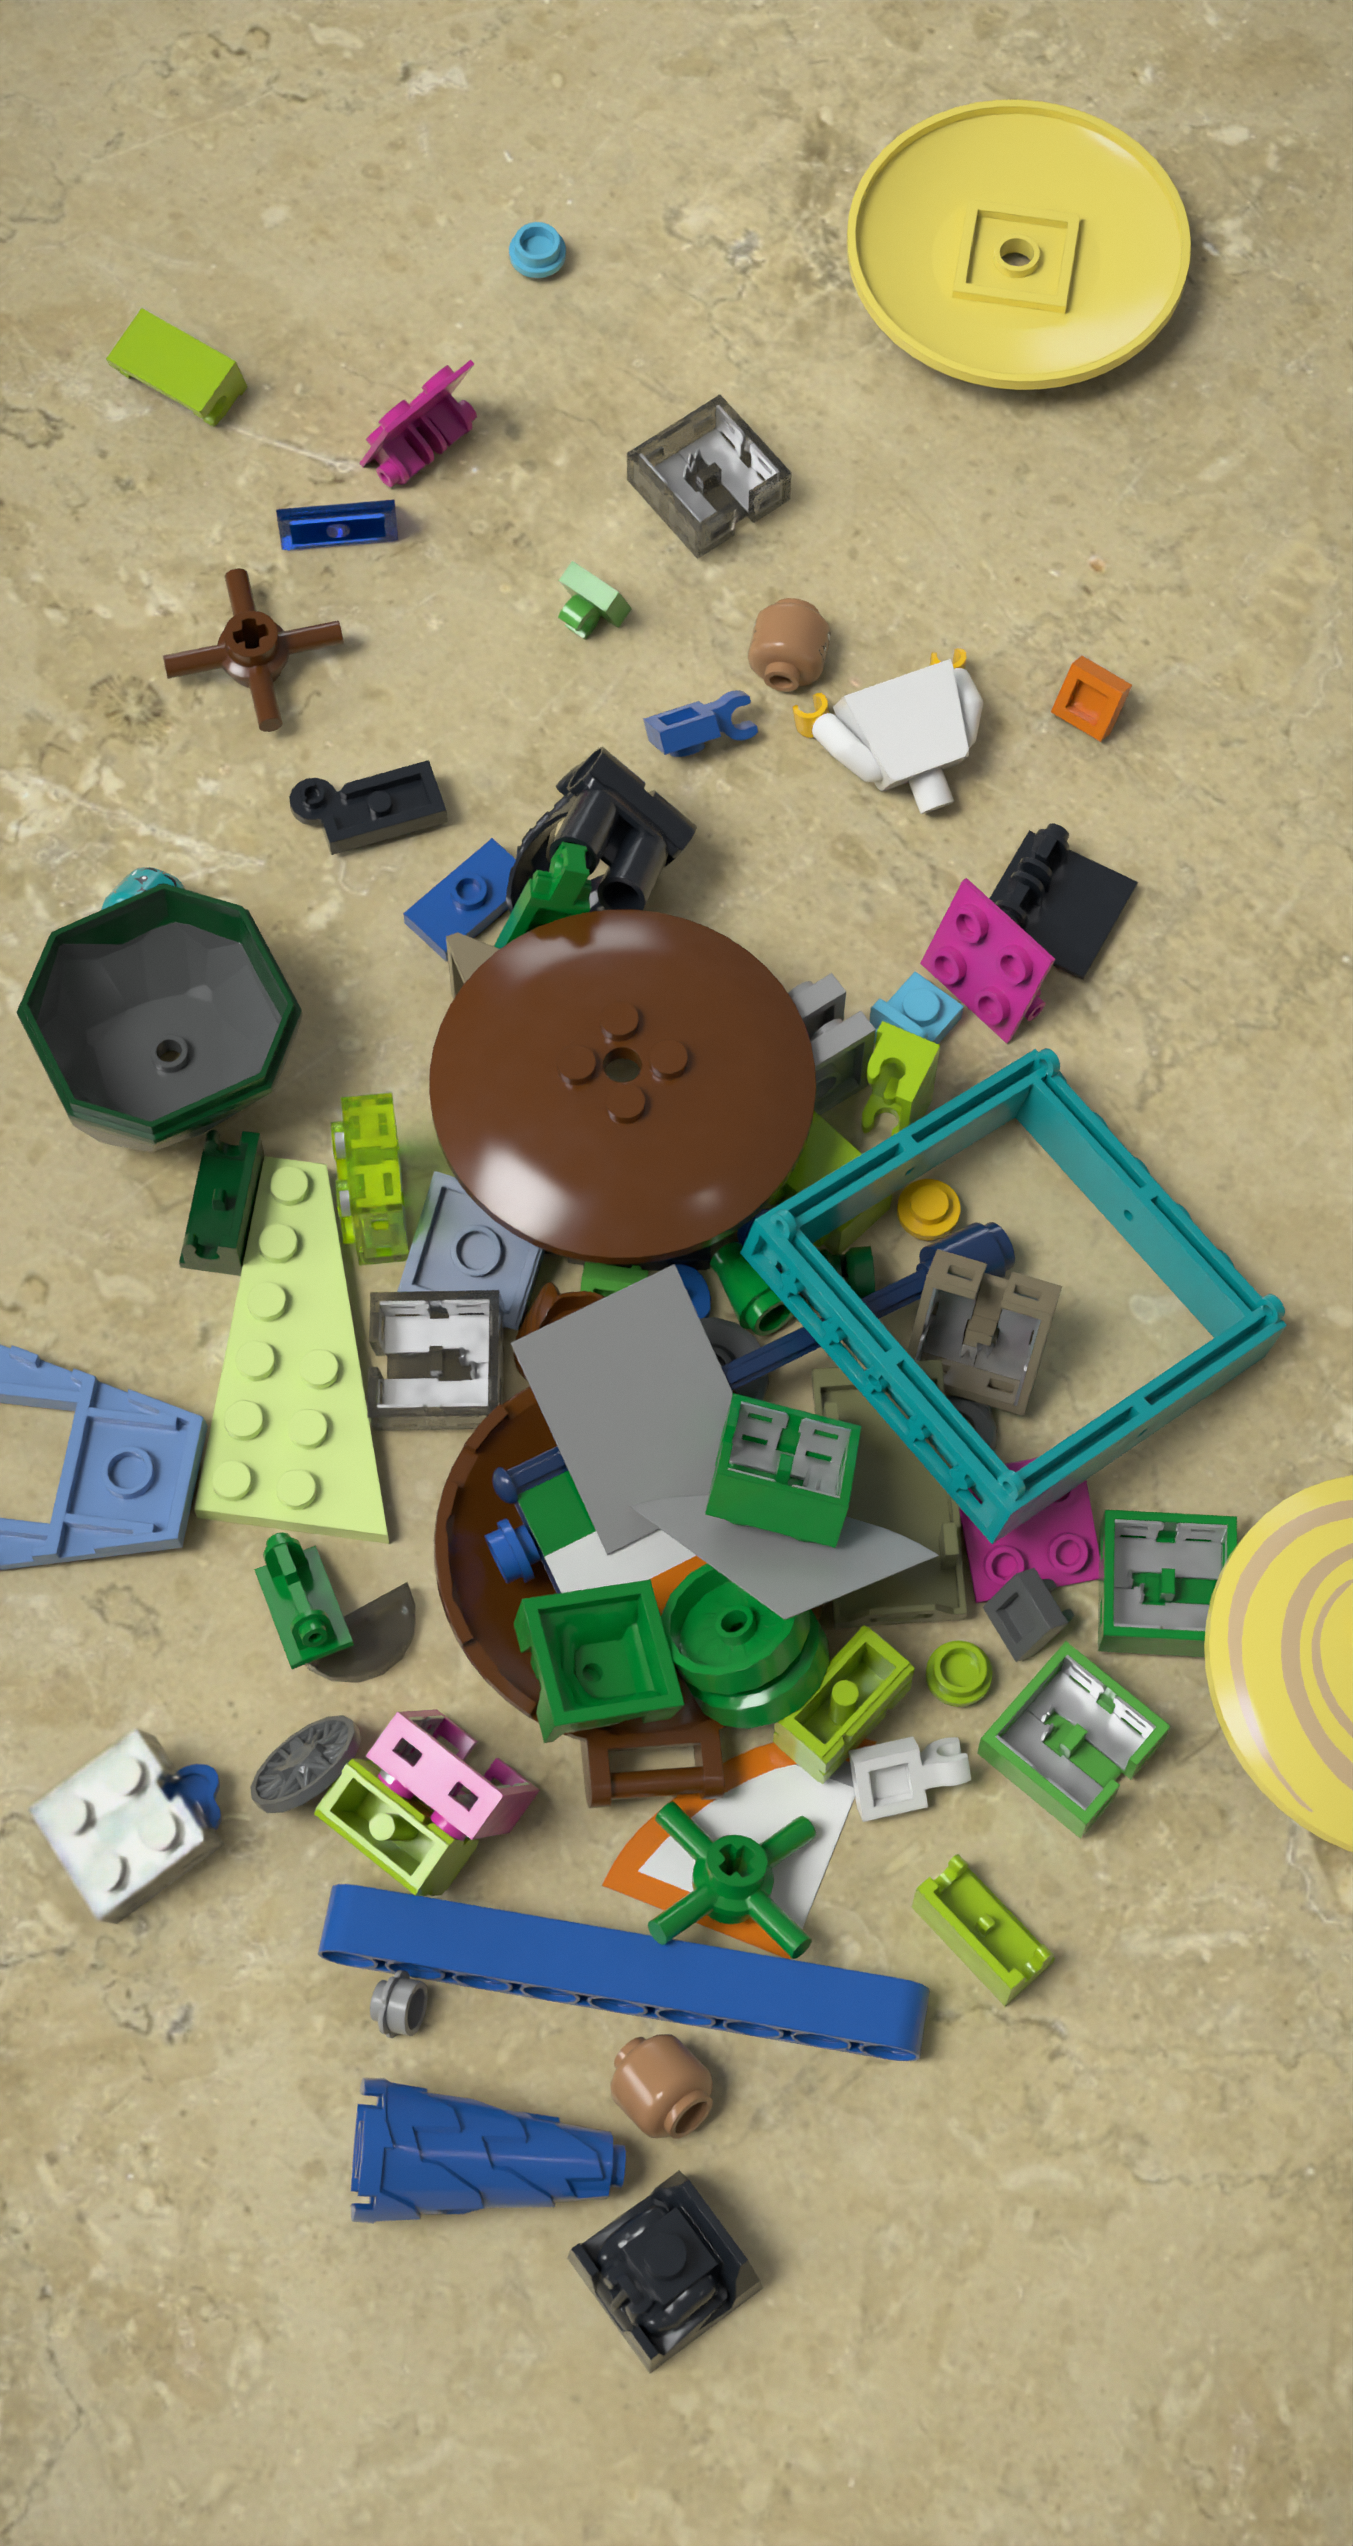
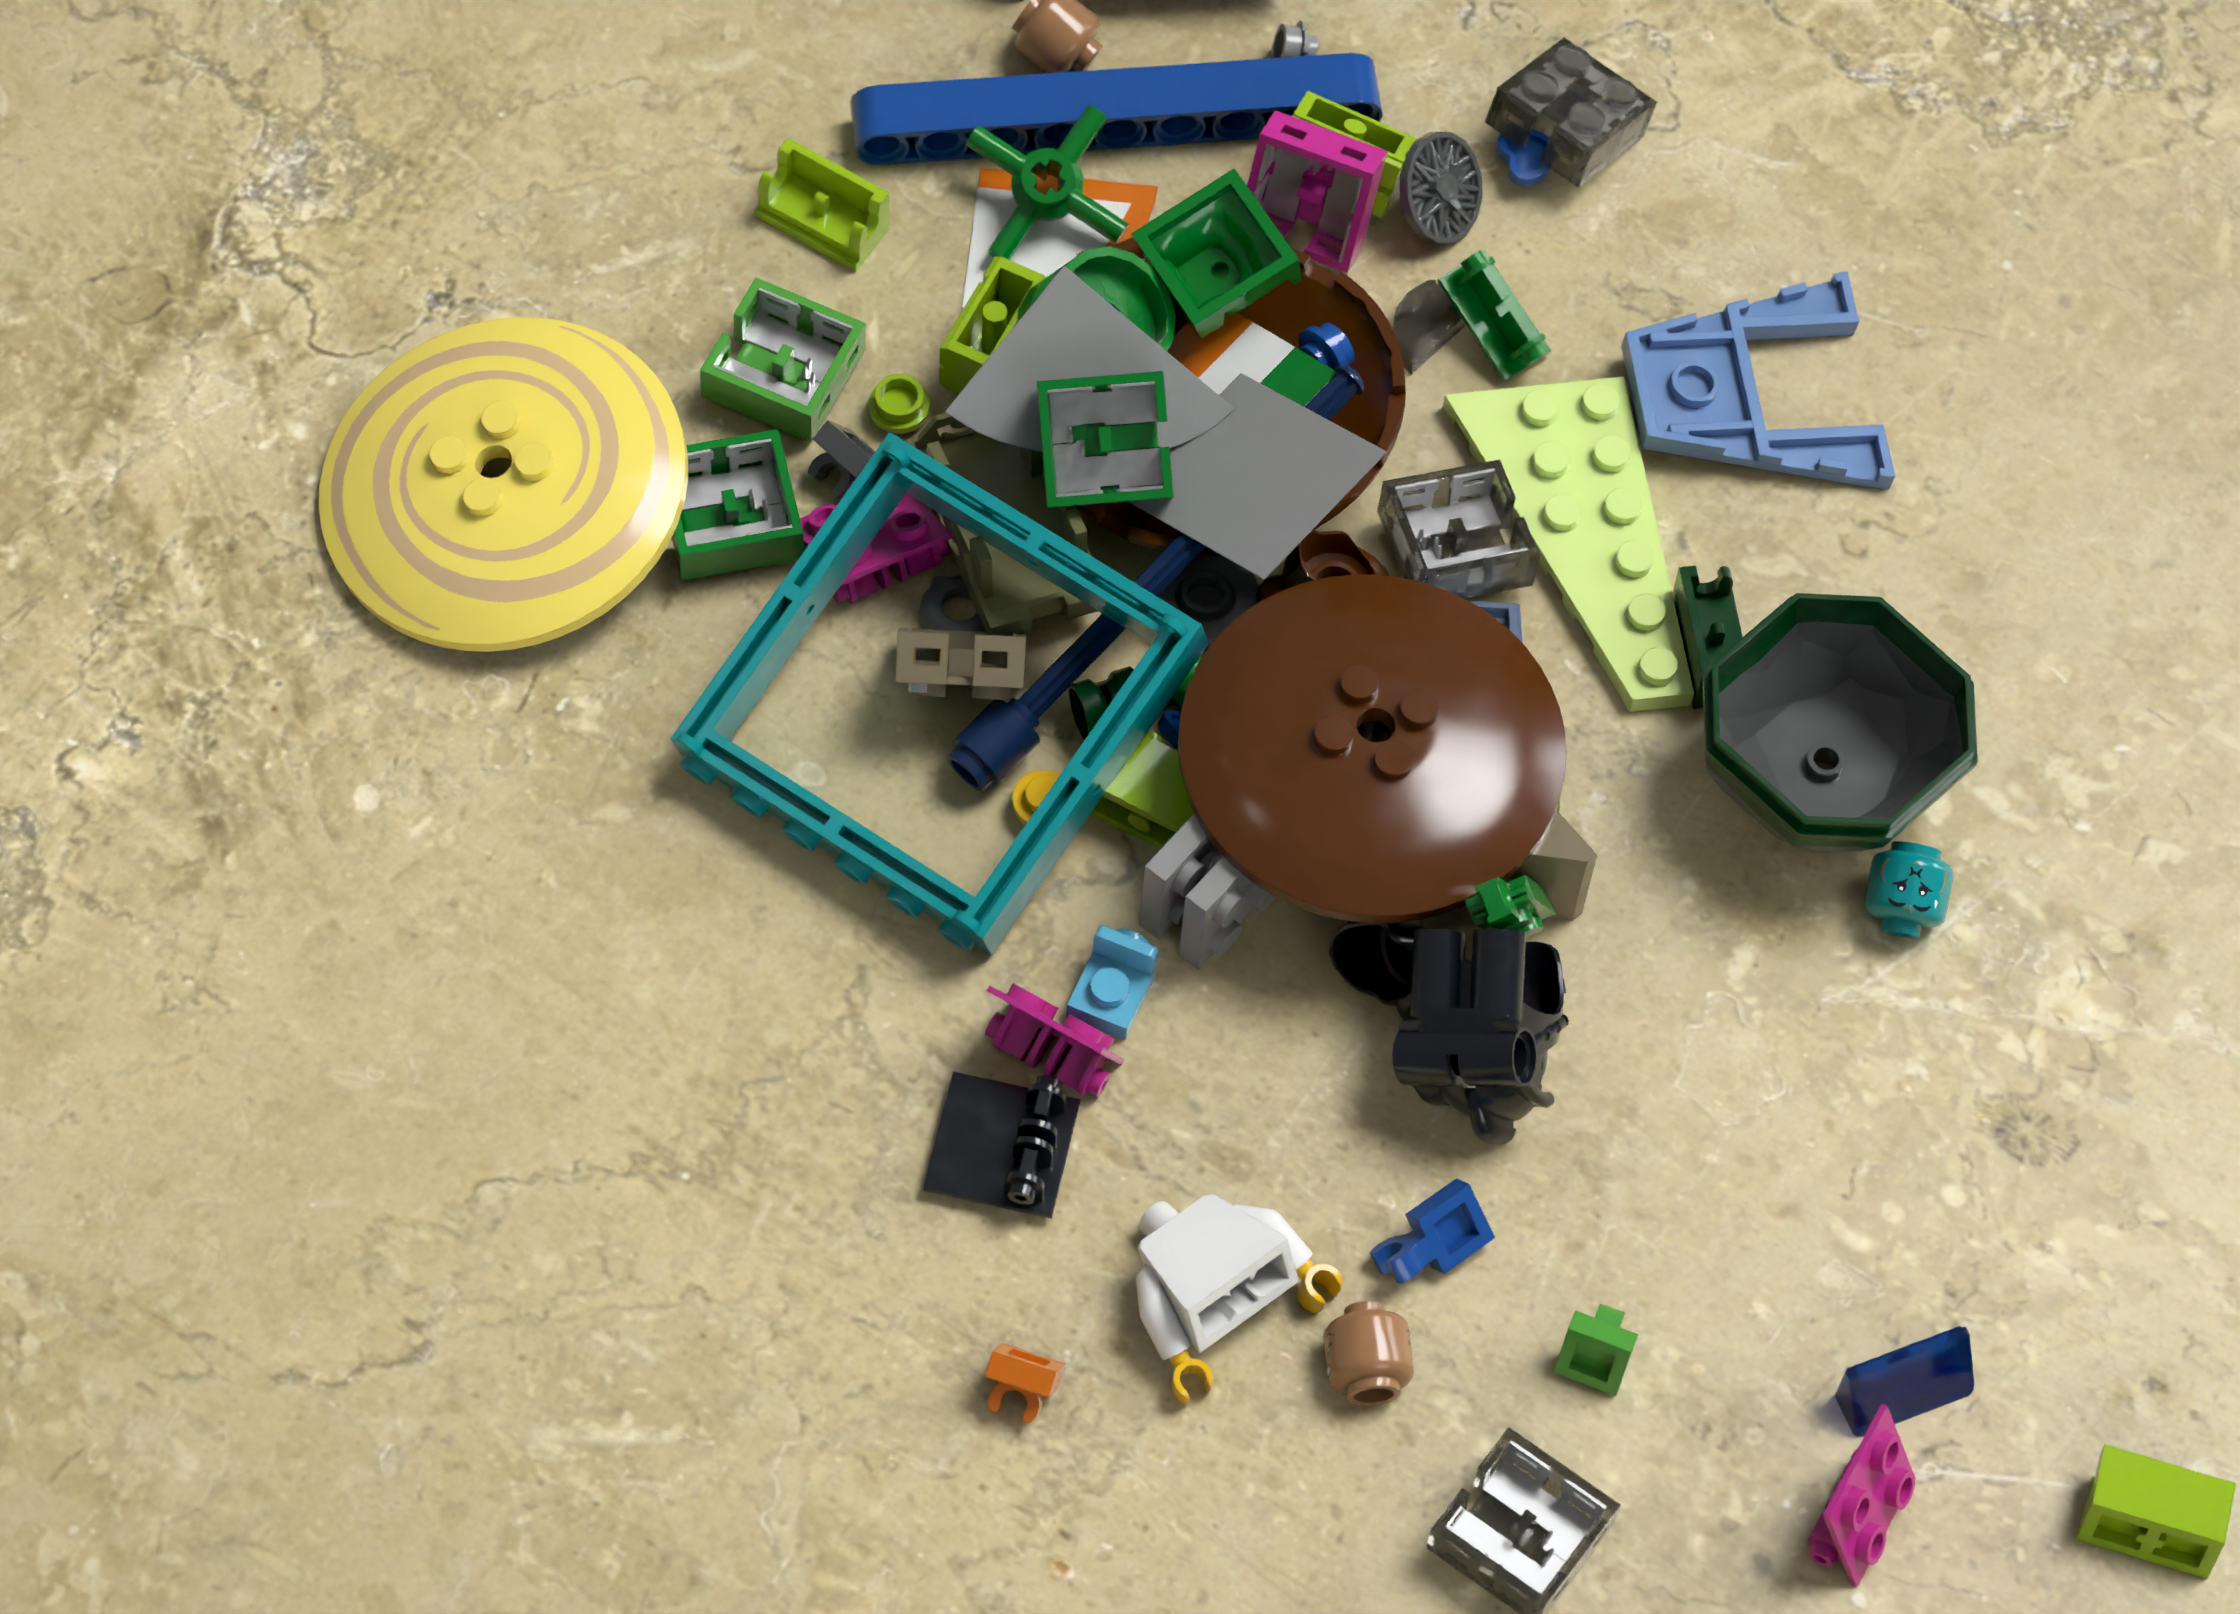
camera: 160 degrees right, 5 degrees down
(253, 649) = (1933, 1180): reddish brown bar -> none
(370, 1179) = (1581, 661): clear neon green piece -> none
(371, 806) = (1735, 1063): black hinge -> none
(464, 899) = (1603, 999): blue plate -> none
(895, 1774) = (928, 303): white plate -> none
(900, 1077) = (1107, 875): lime hinge -> none

